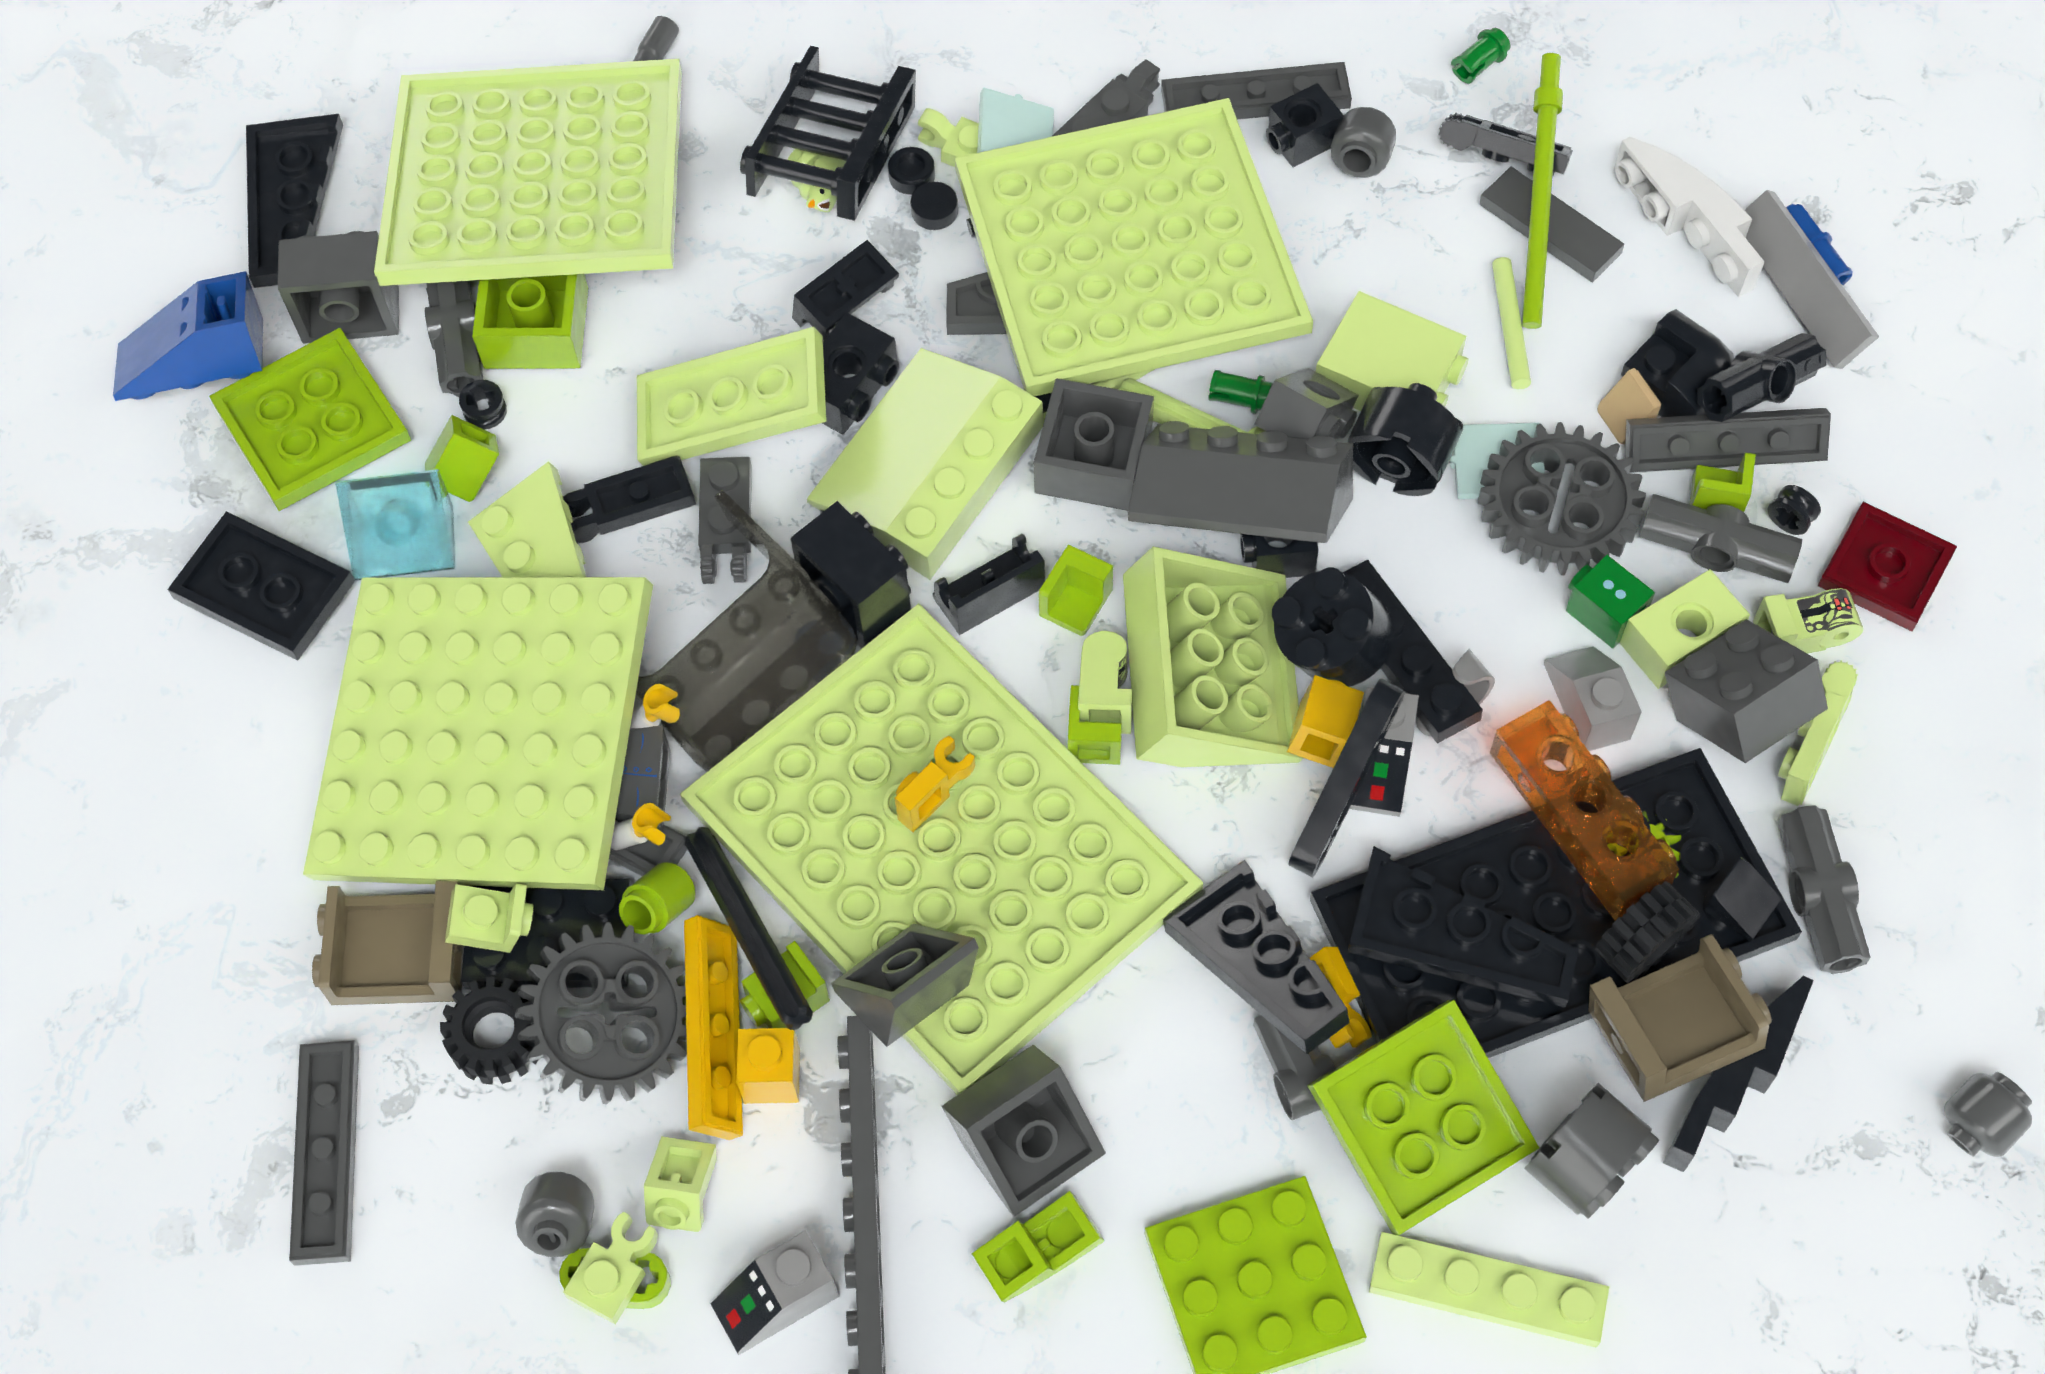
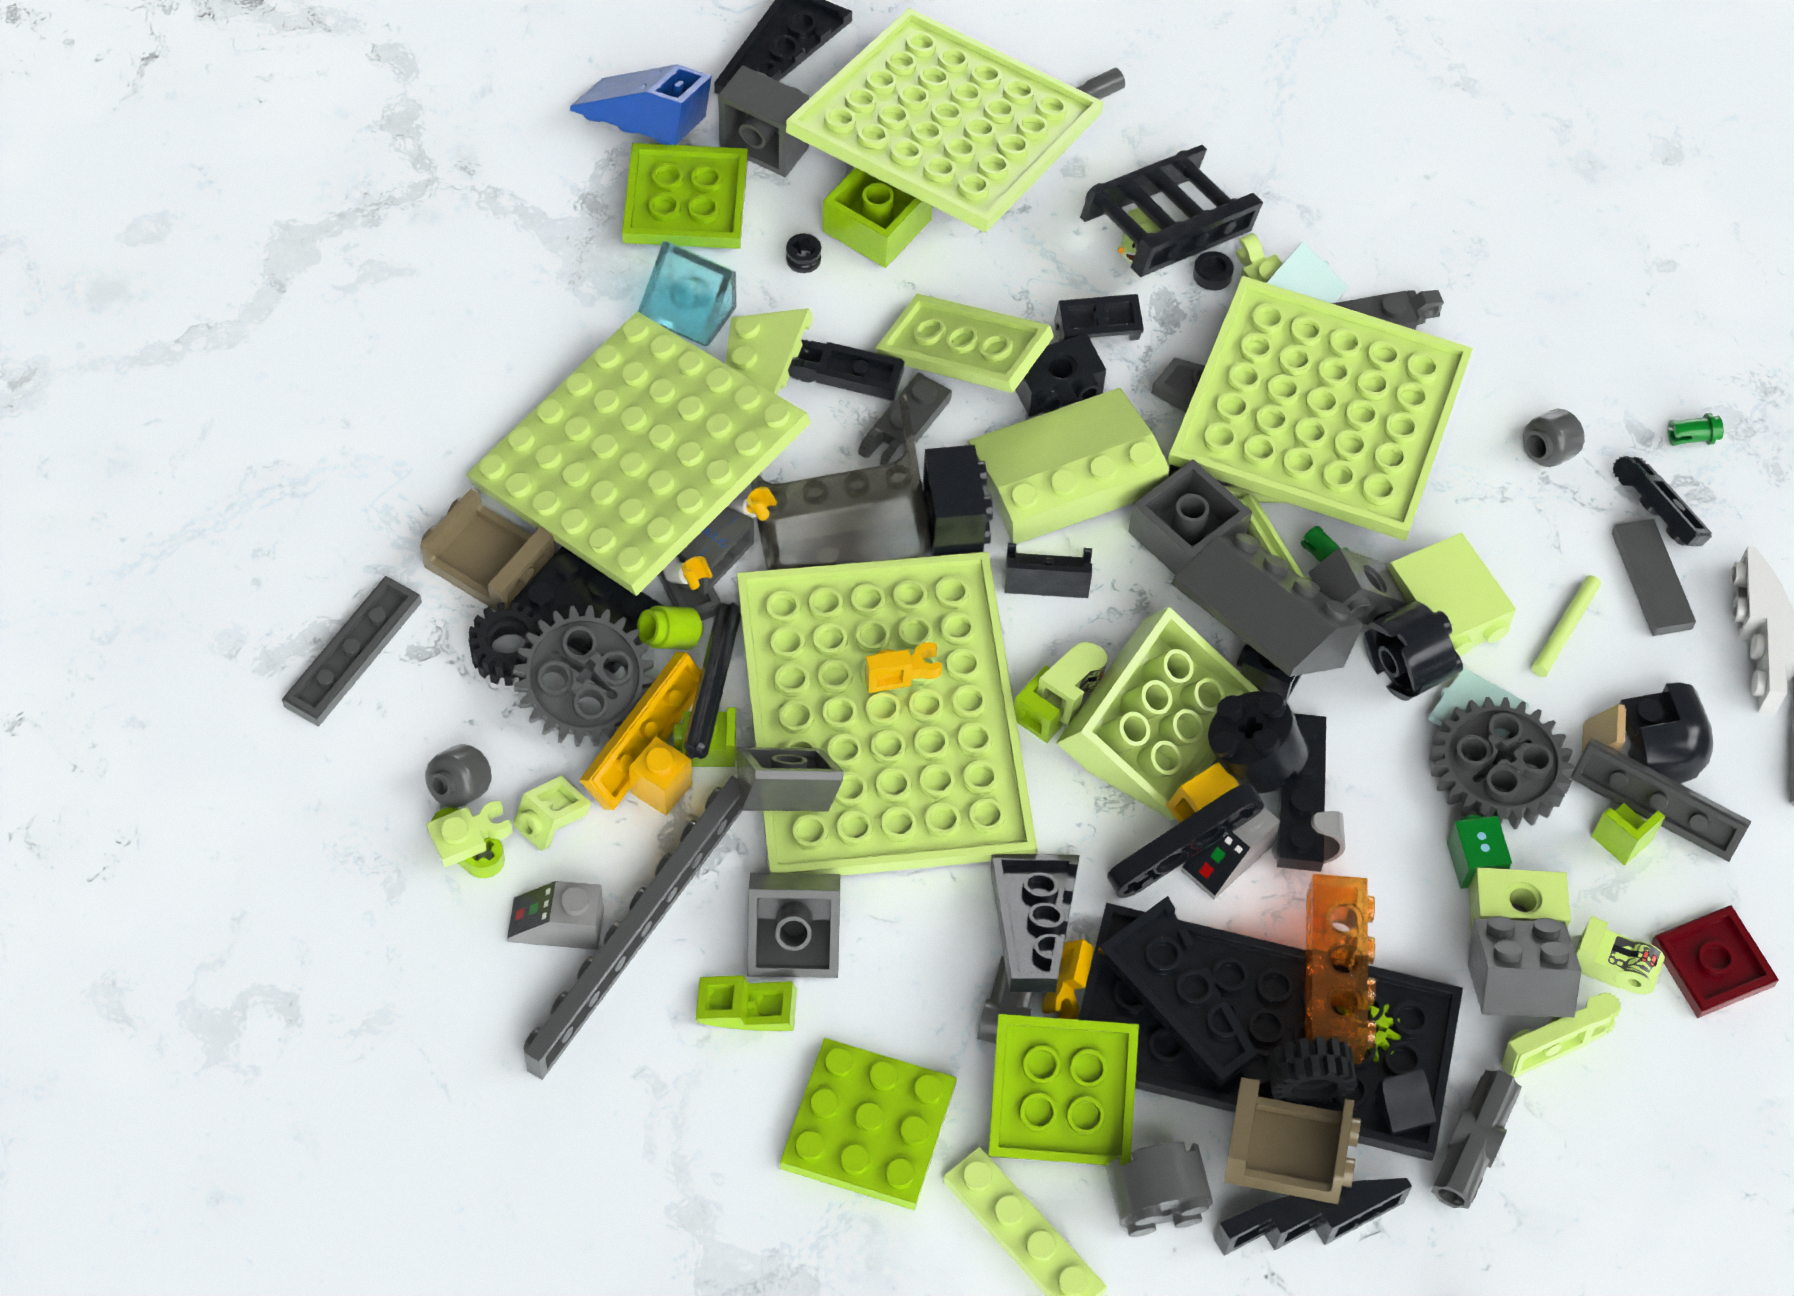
camera: 30 degrees right, 5 degrees down
(261, 585) = (575, 281): black plate -> none
(450, 333) = (816, 185): dark grey piece -> none
(463, 457) = (763, 278): lime panel -> none
(488, 917) = (553, 568): yellowish green bracket -> none
(934, 205) = (1210, 303): black tile -> none
(1075, 590) = (1103, 609): lime panel -> none
(1257, 90) = (1513, 363): dark grey tile -> none
(1303, 125) = (1517, 399): black brick -> none
(1547, 104) = (1705, 487): lime bar -> none
(1594, 696) = (1413, 909): light grey slope -> none
(1721, 538) = (1599, 862): dark grey piece -> none
(1761, 377) = (1718, 770): black piece -> none
(1794, 510) = (1671, 877): black bush -> none

